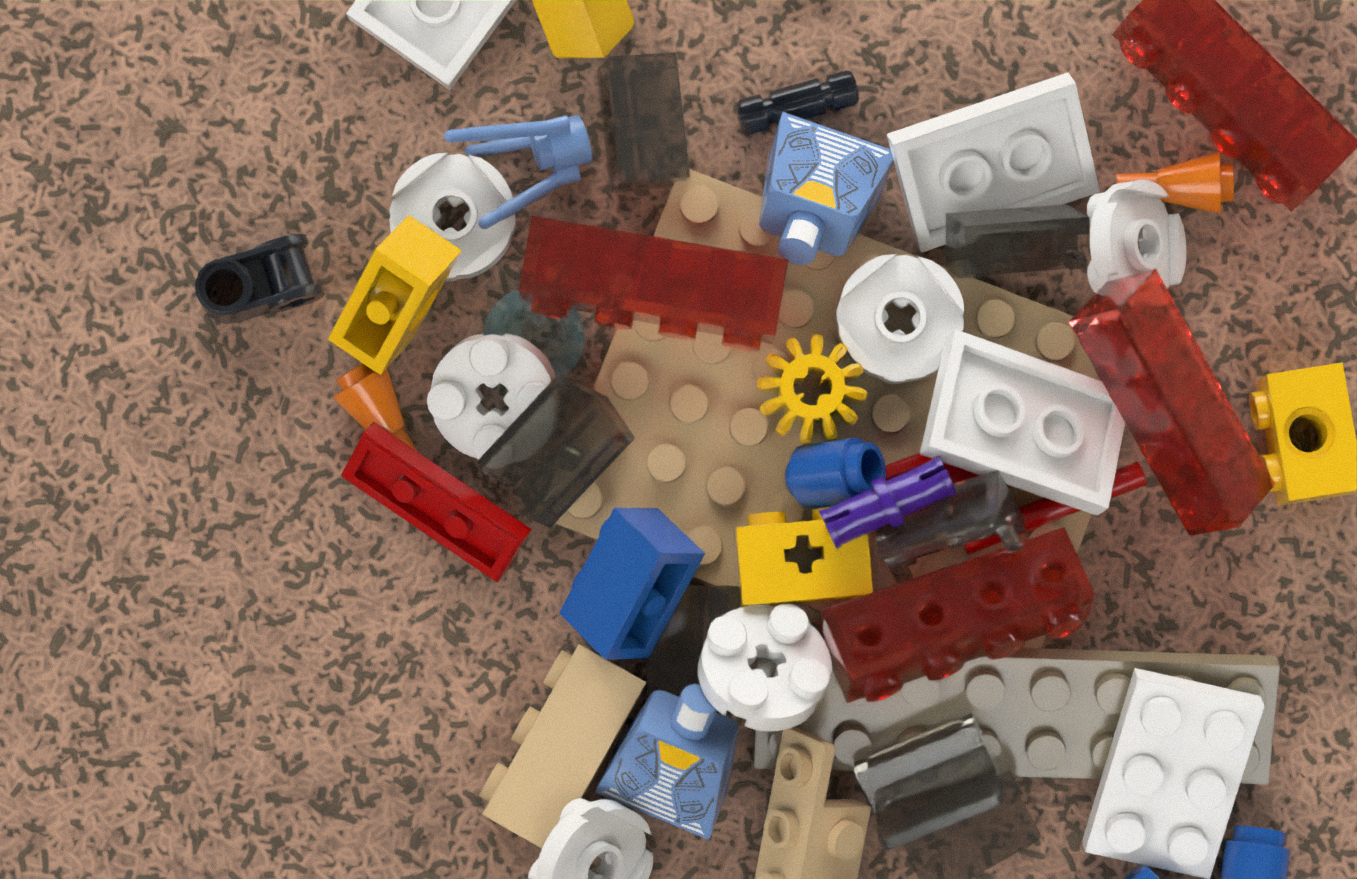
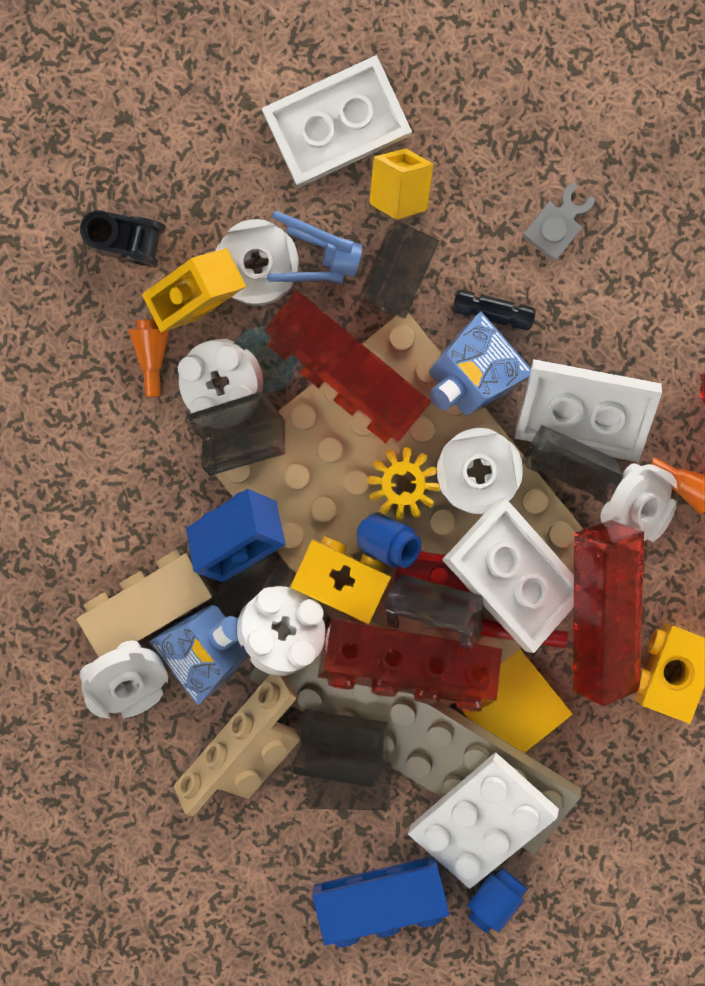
camera: 30 degrees right, 5 degrees up
(435, 502) = (153, 423): red tile -> none
(887, 502) = (406, 577): dark purple pin -> none
(1139, 597) = (524, 705): none -> yellow tile

